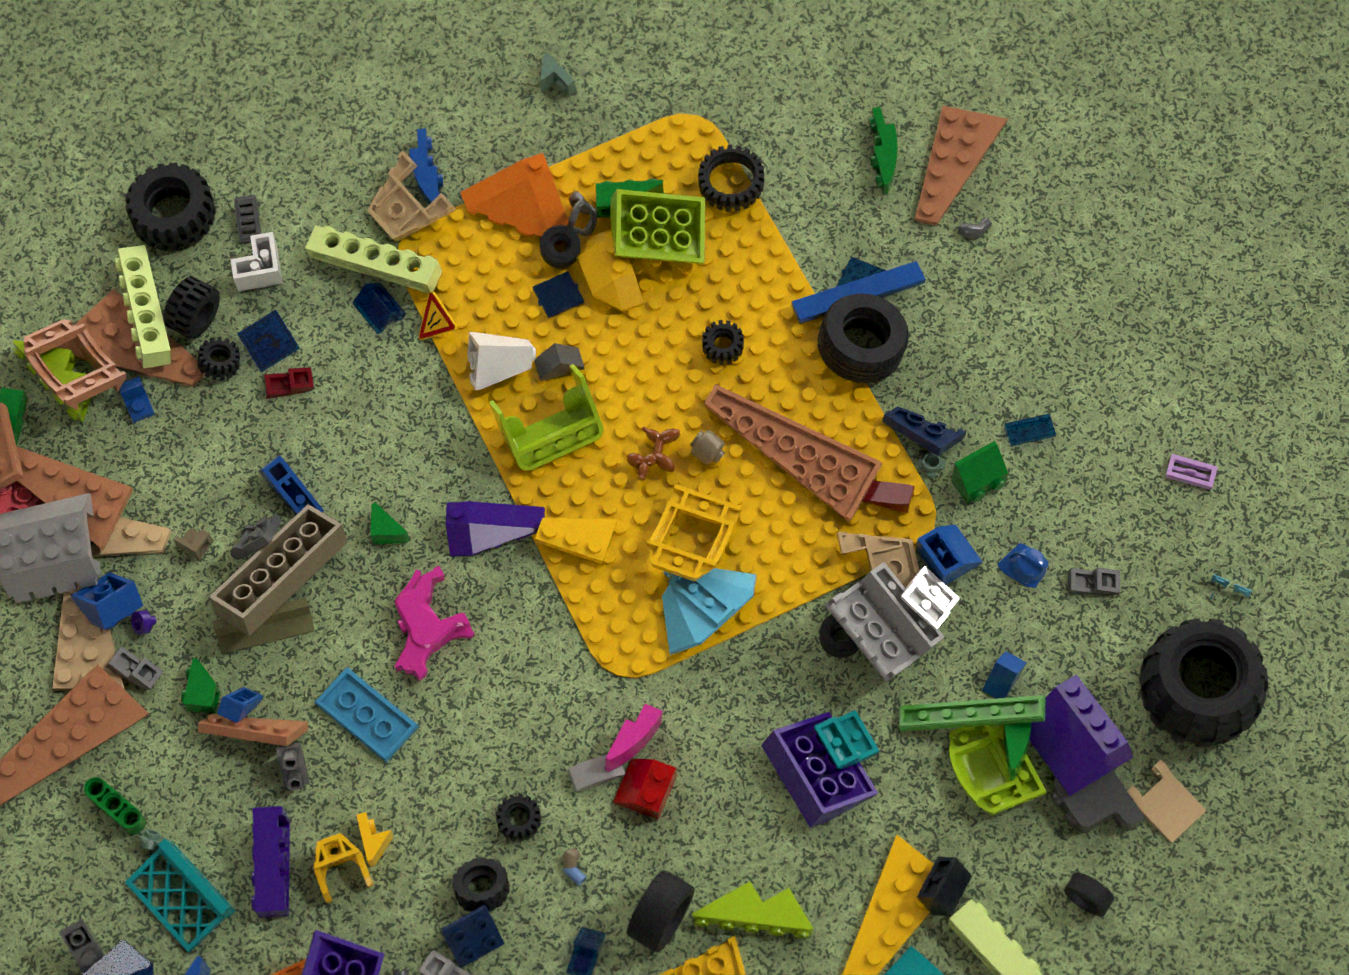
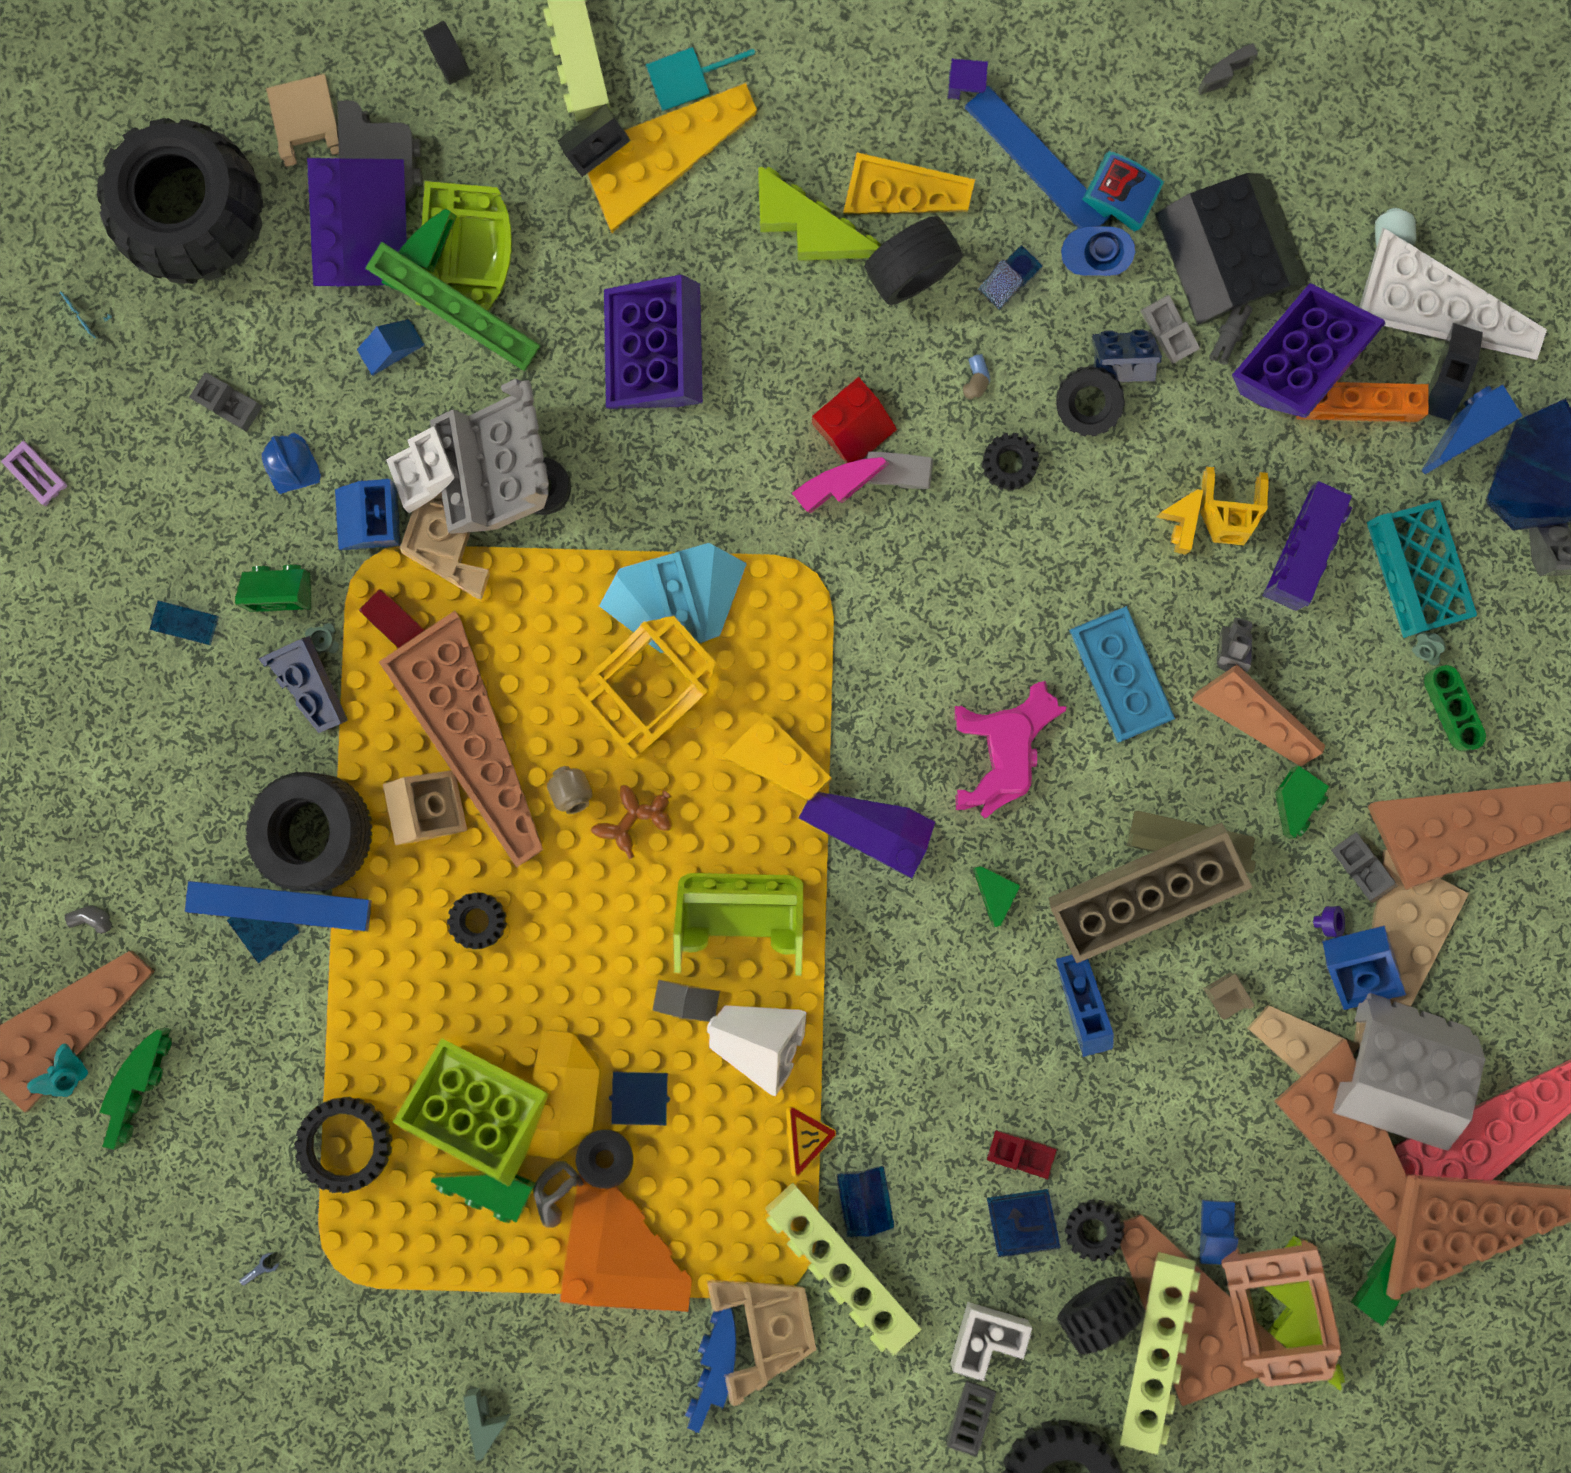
camera: 155 degrees left, 20 degrees up
(239, 704) = (1277, 743): blue slope -> none
(255, 536) = (1149, 948): dark grey plate -> none
(742, 94) = (259, 1269): none -> sand blue hand
(797, 390) = (424, 807): none -> tan slope
(846, 739) = (605, 360): teal slope -> none
(931, 134) = (62, 1076): none -> teal animal

